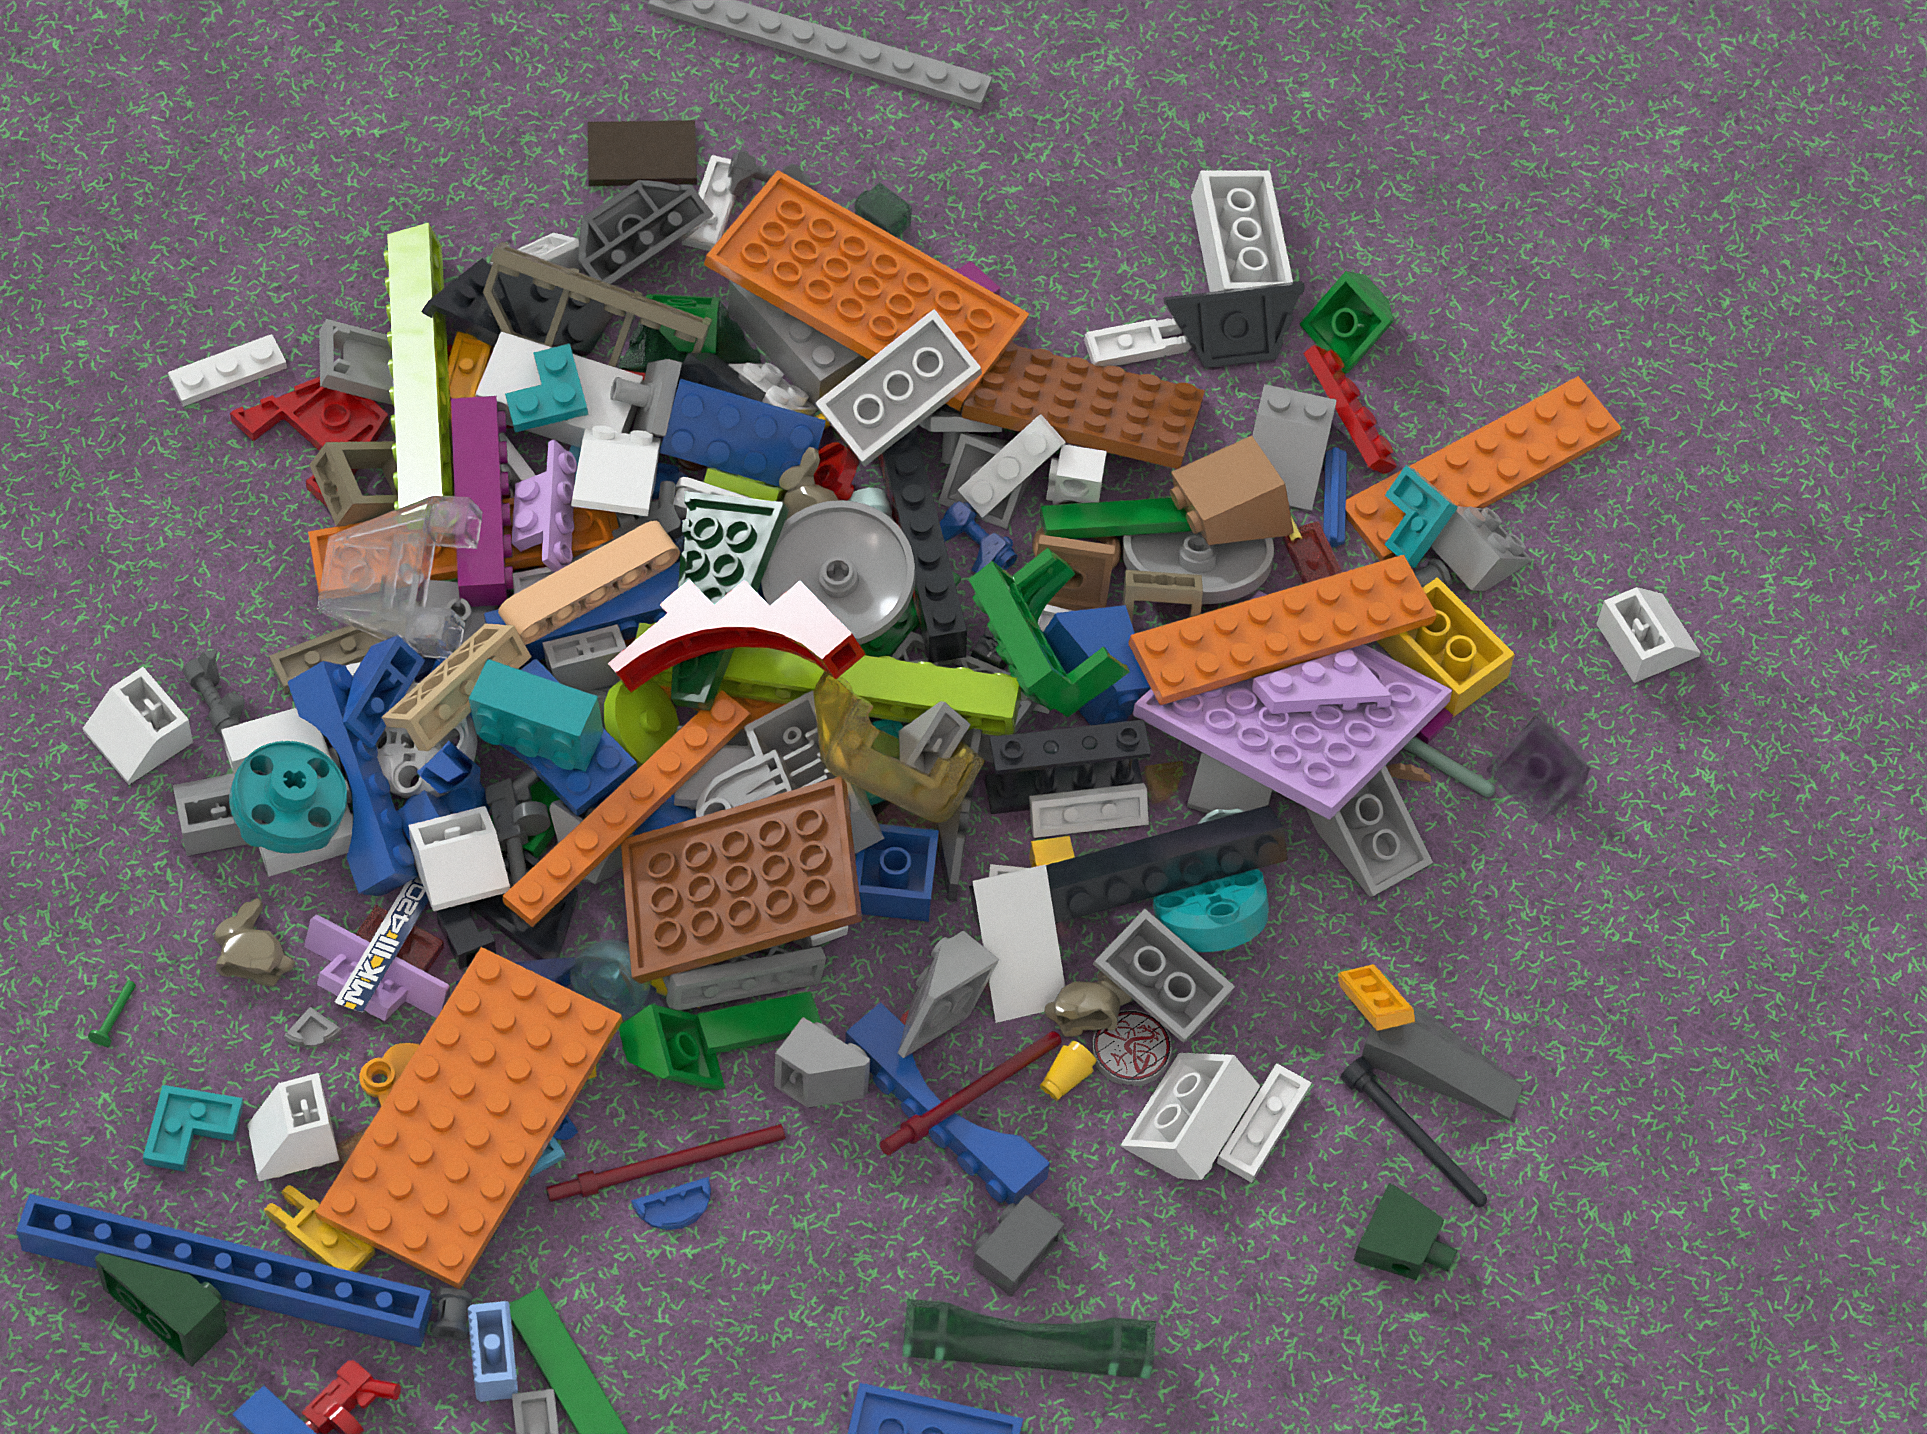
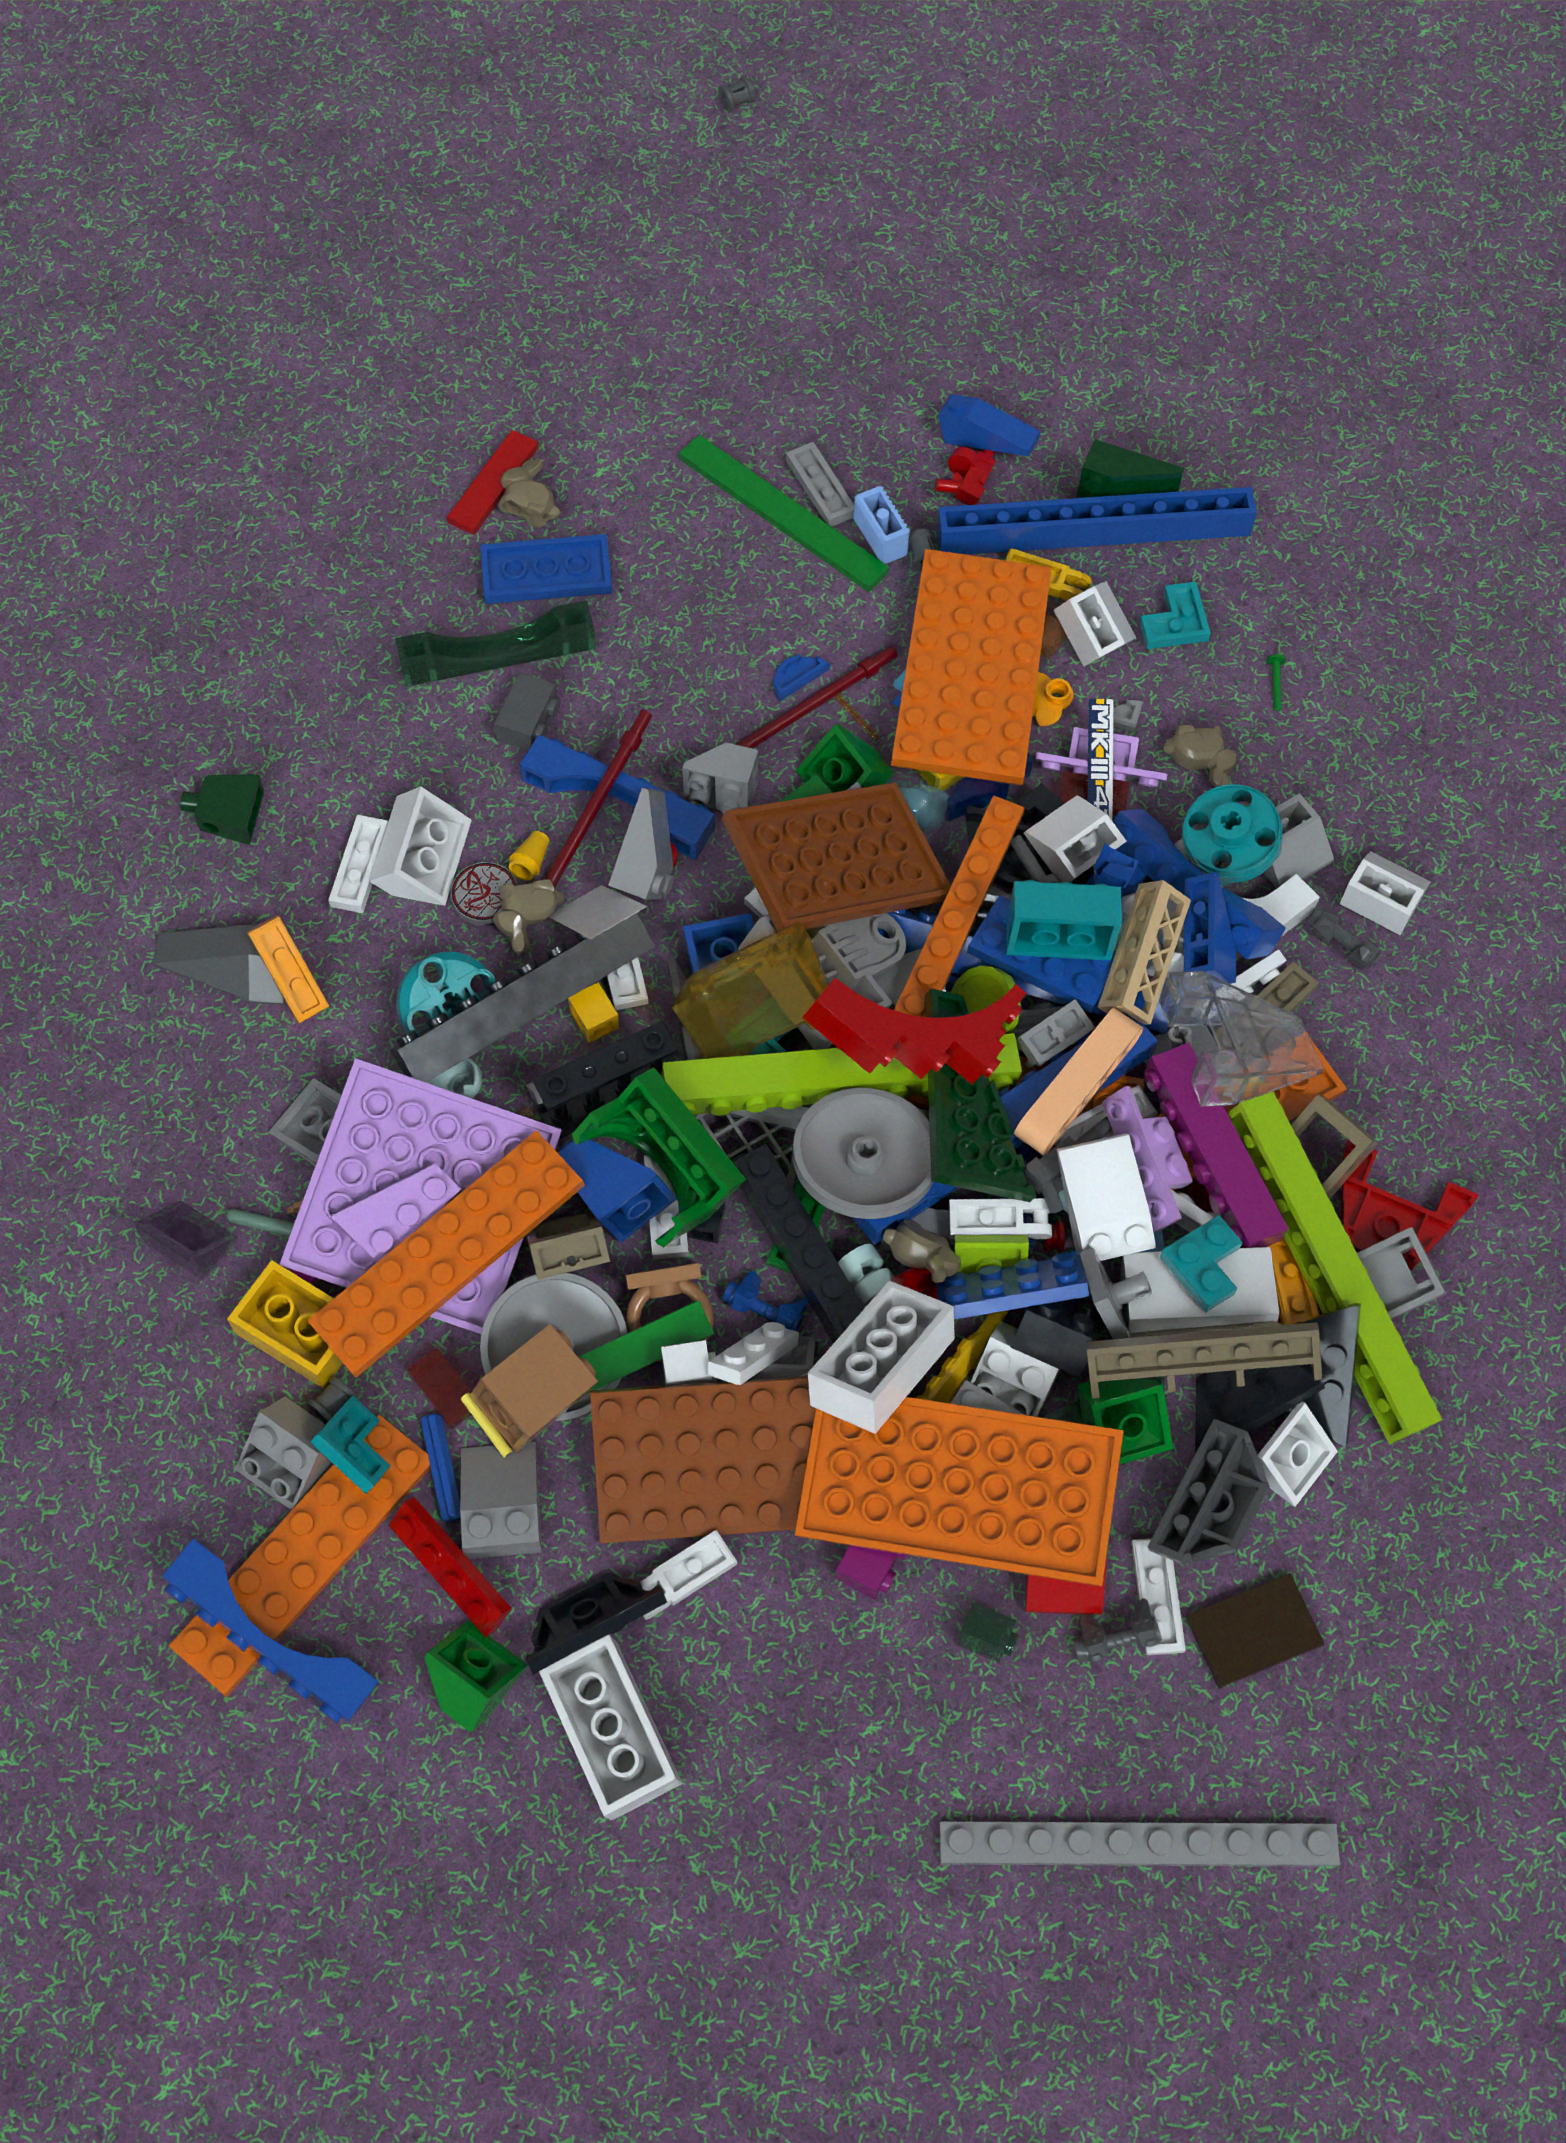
camera: 165 degrees right, 5 degrees up
(227, 370) = (1507, 1248): white plate -> none
(624, 1129) = (857, 717): none -> clear orange piece
(931, 736) = (728, 1024): light grey slope -> none
(1165, 976) = (474, 925): light grey slope -> none
(1361, 1077) = (291, 919): black piece -> none
(1483, 351) = (332, 1681): none -> blue arch
(1645, 633) = (104, 1411): white slope -> none

